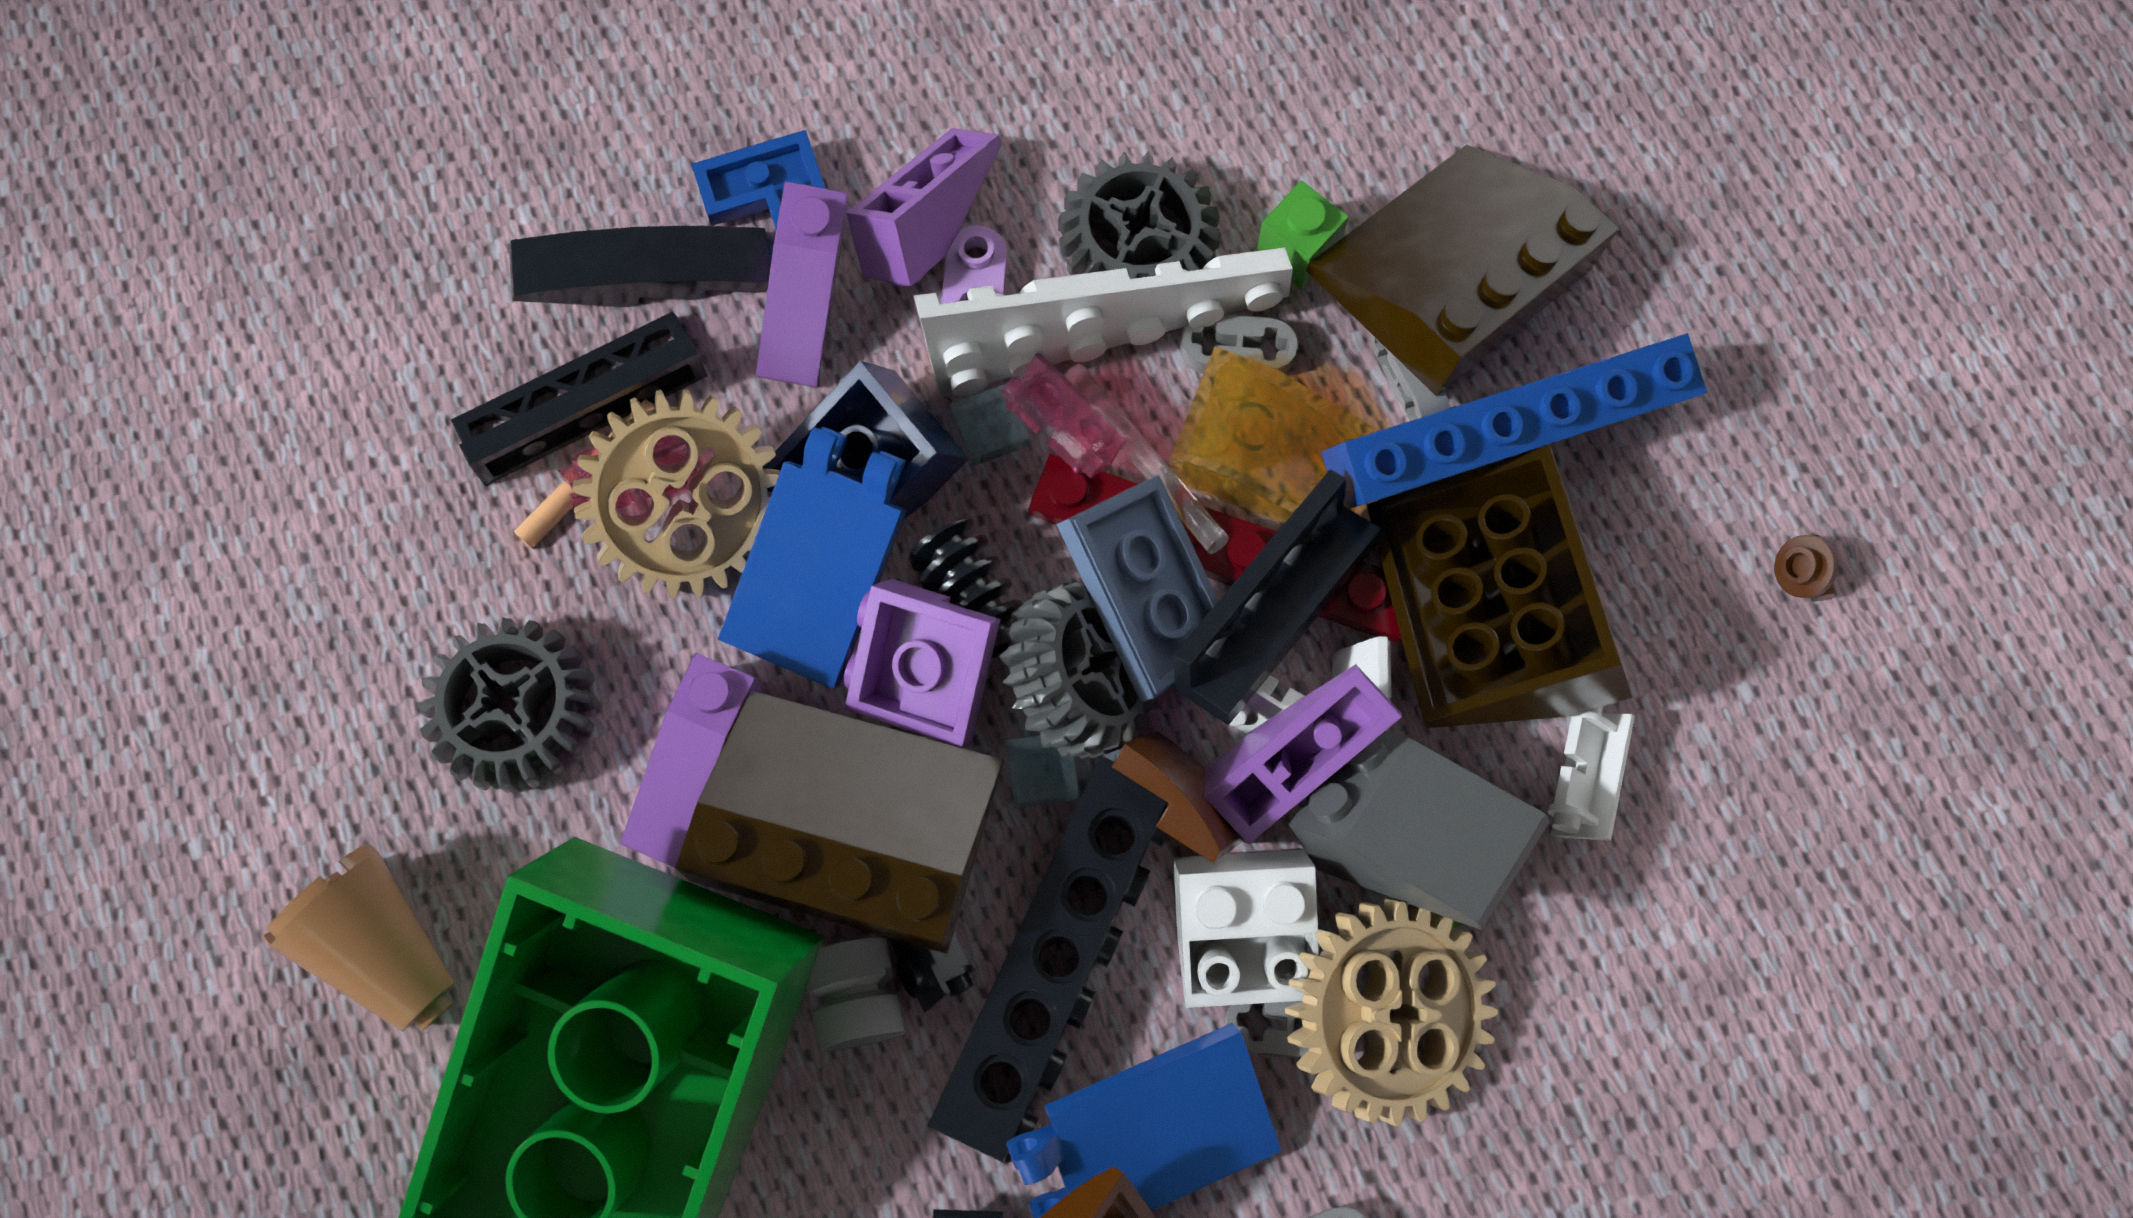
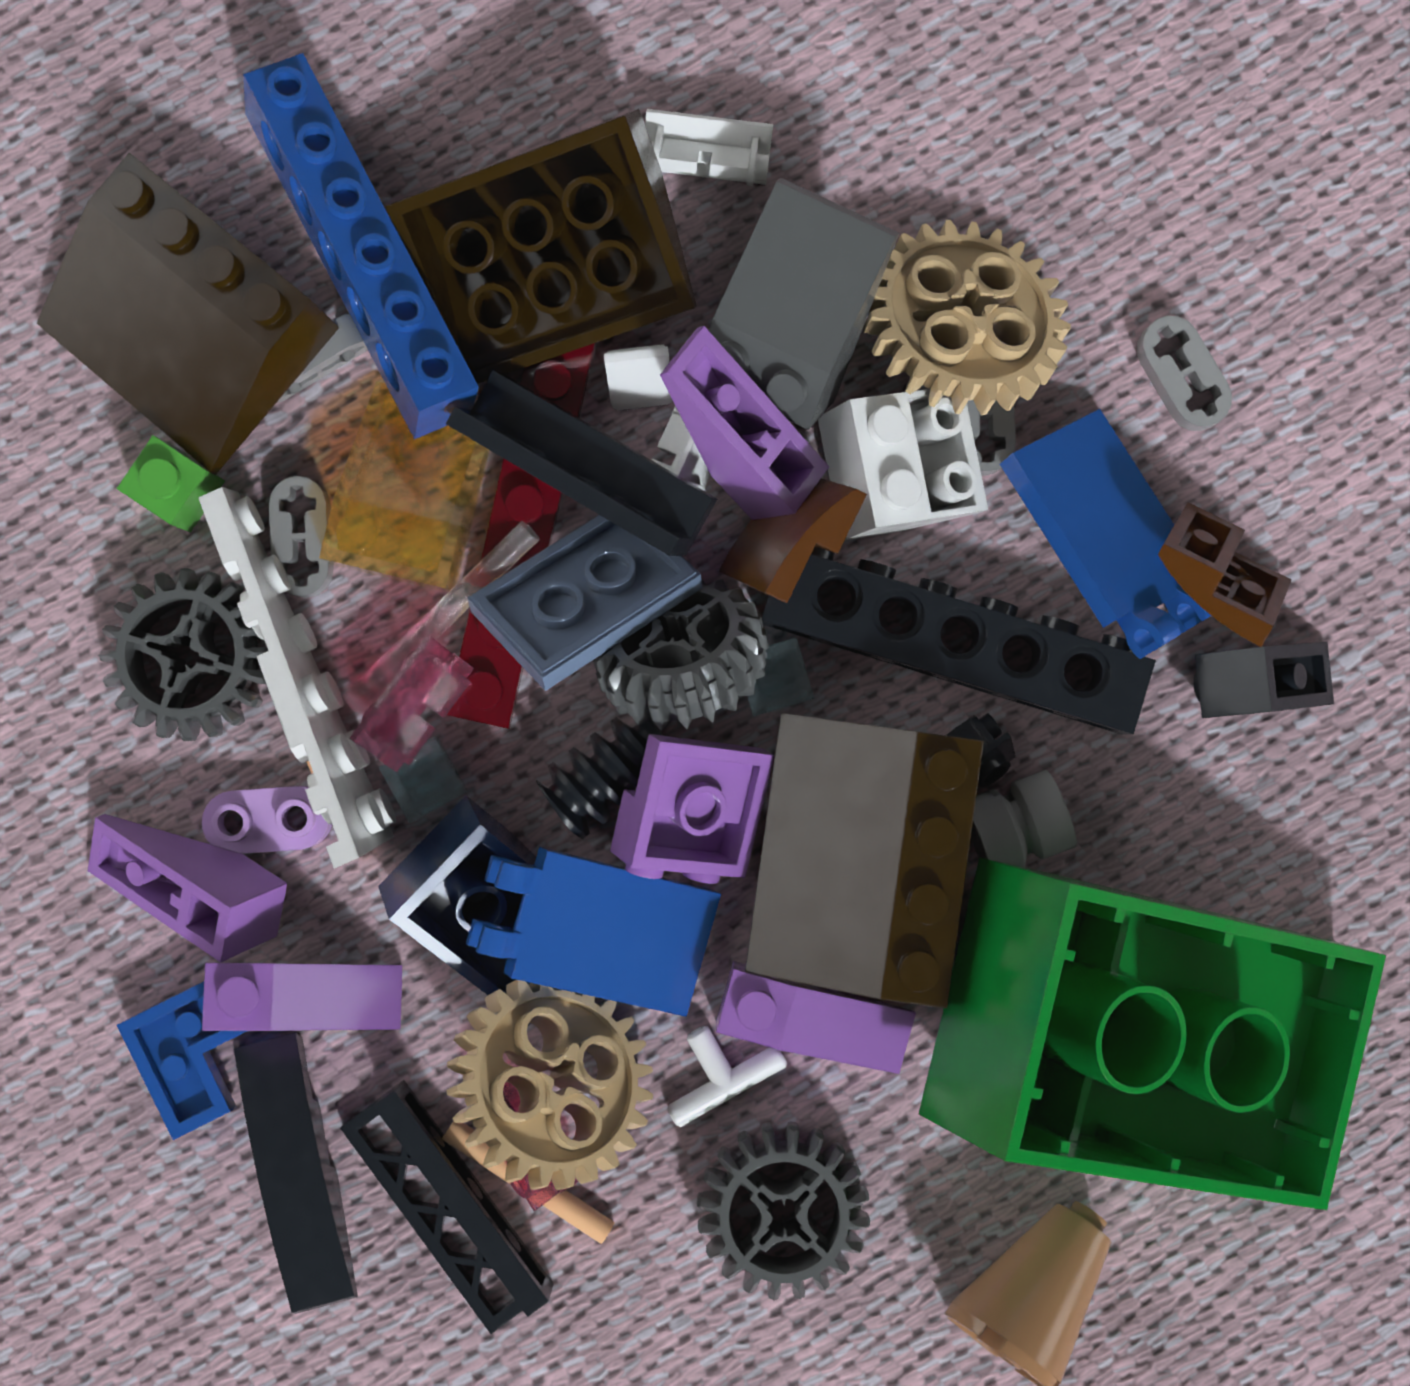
camera: 95 degrees left, 15 degrees up
(647, 668) = (724, 1080): none -> white piece

